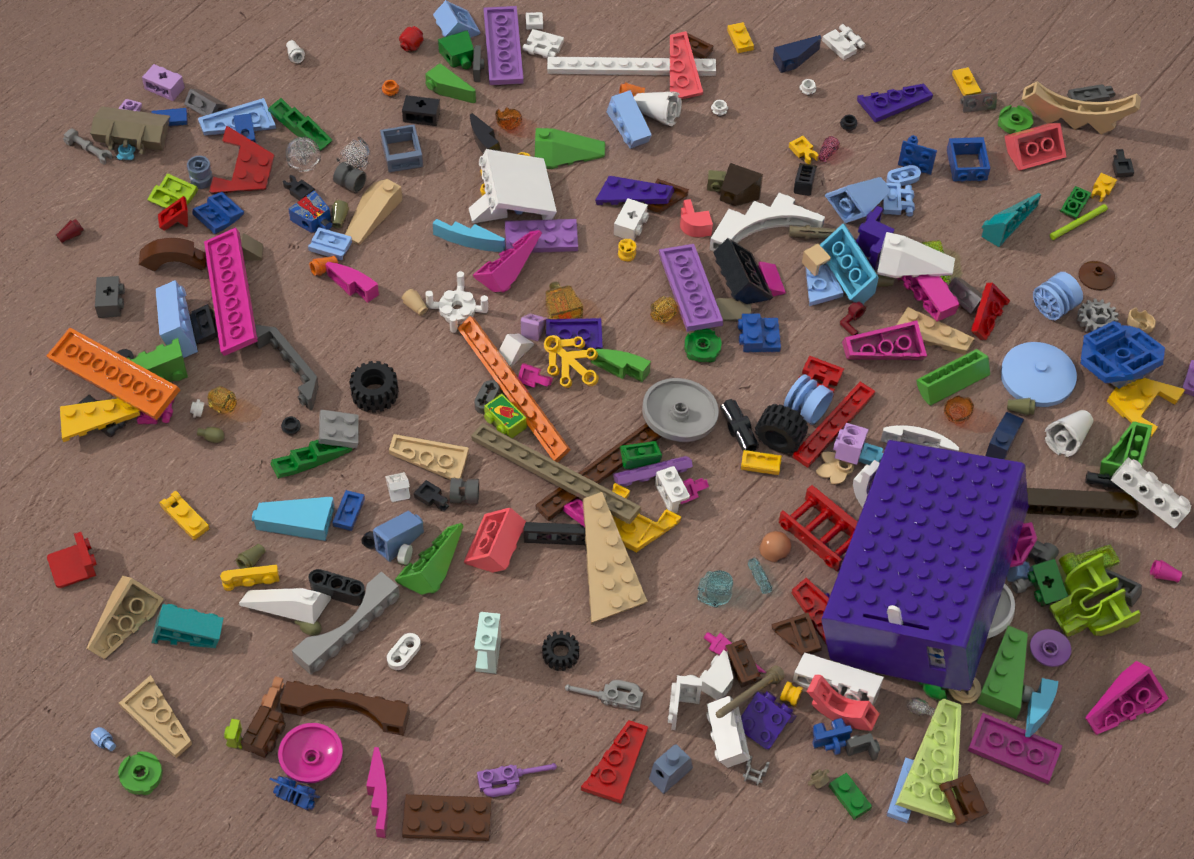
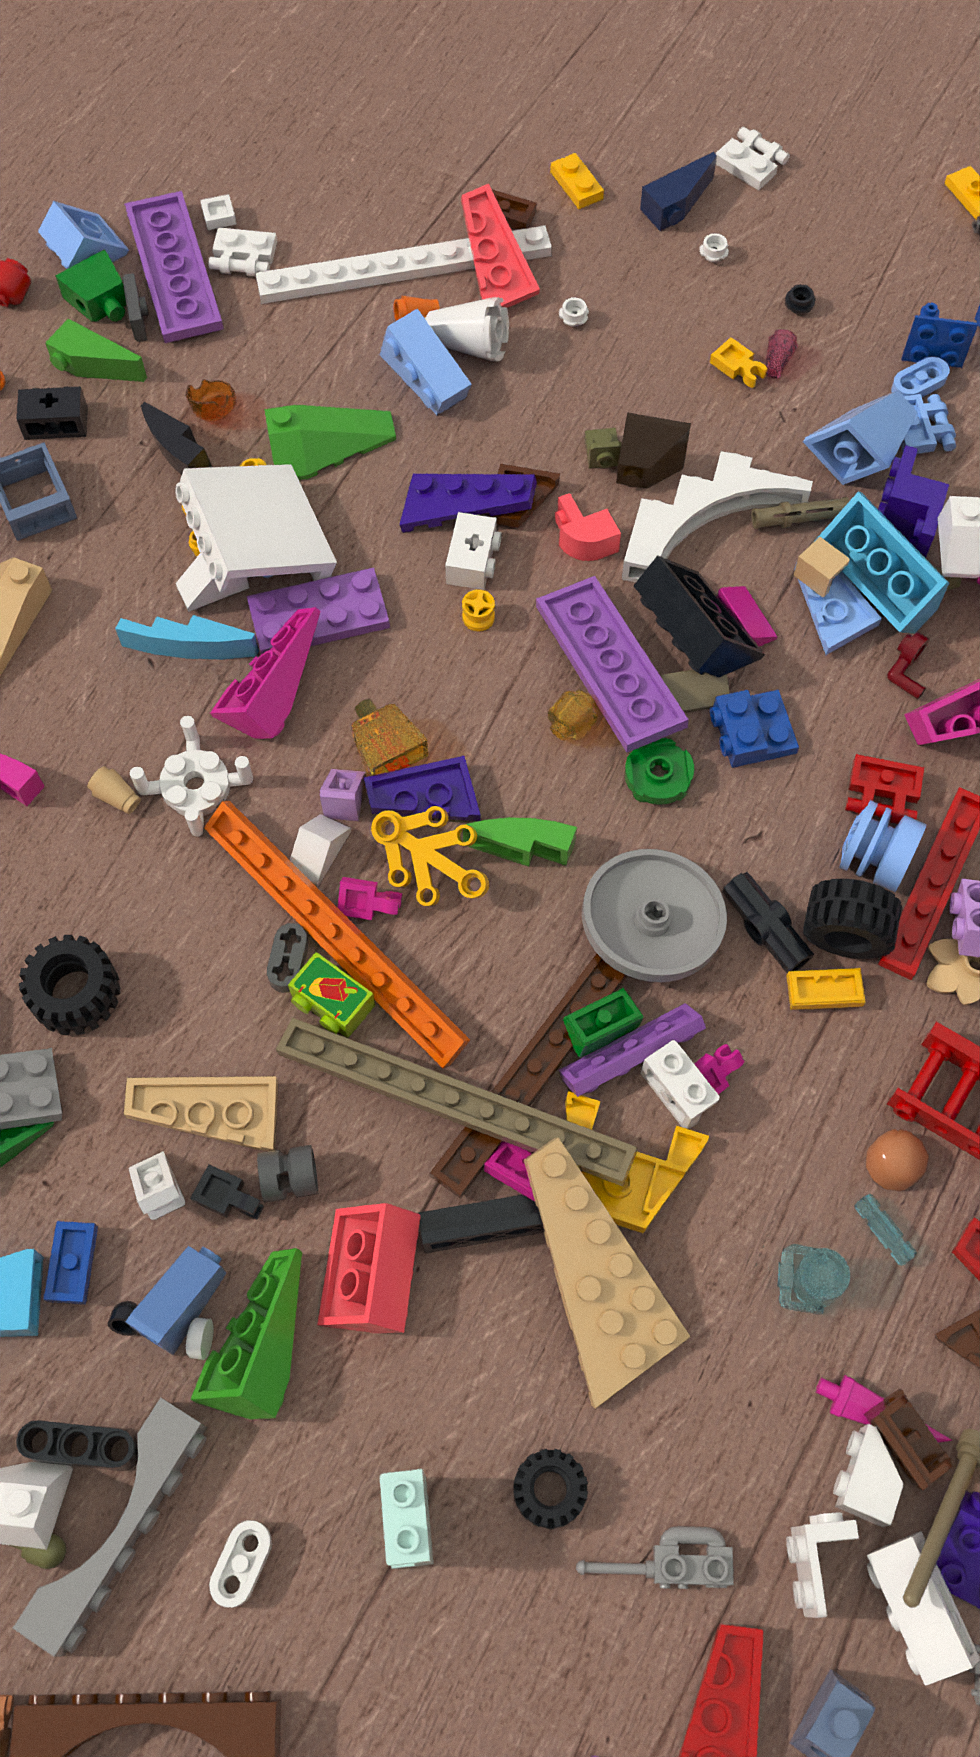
camera: 10 degrees left, 10 degrees up
(805, 180) = (754, 418): black slope -> none
(894, 101) = (865, 248): dark purple wing -> none

